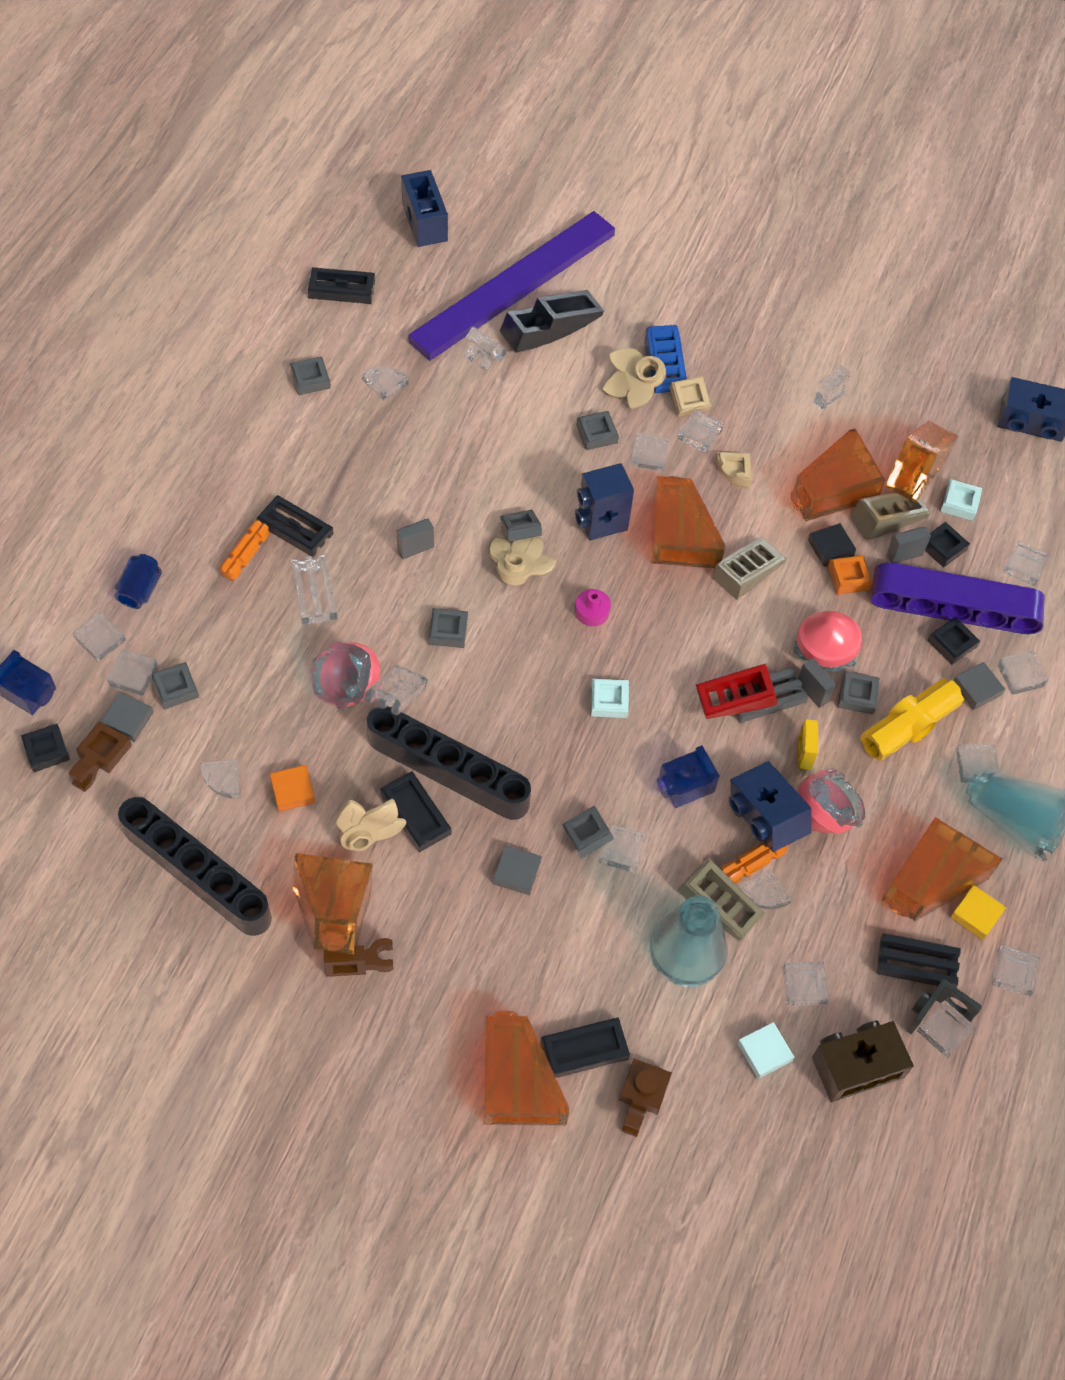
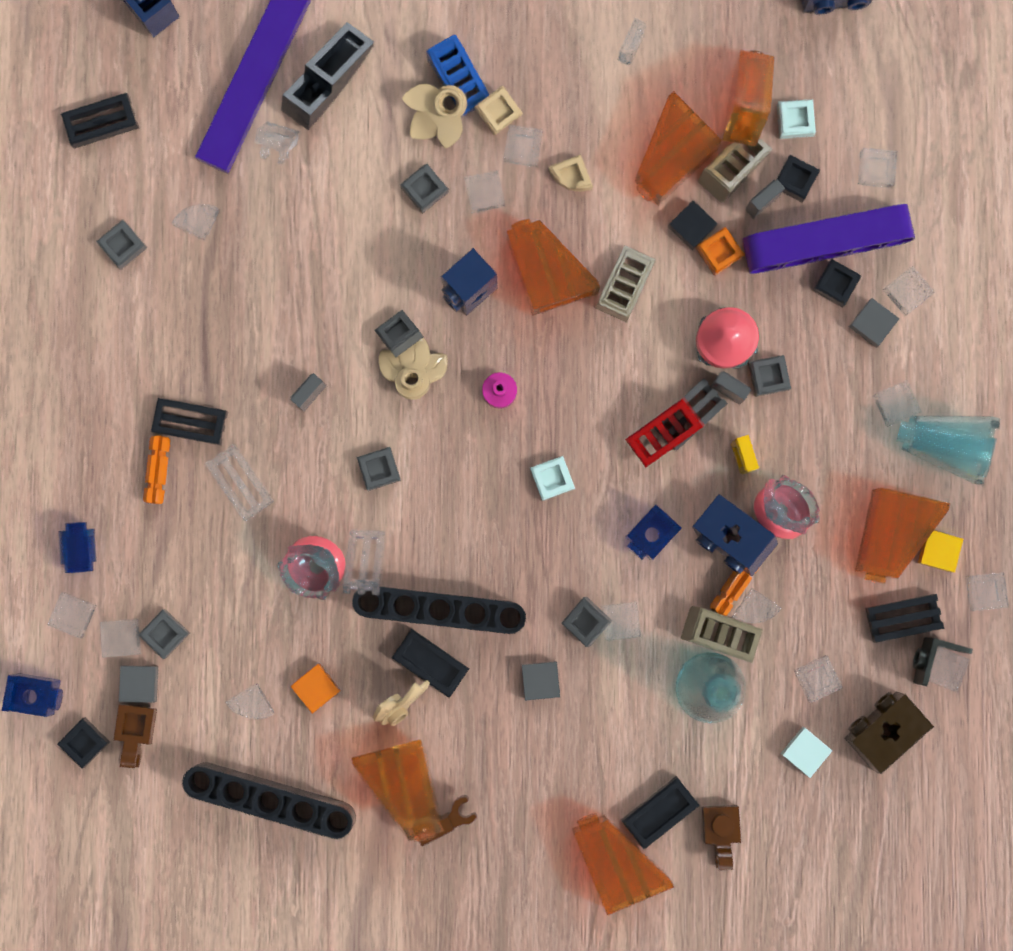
camera: 20 degrees left, 25 degrees up
(912, 719) = (827, 387): yellow piece -> none

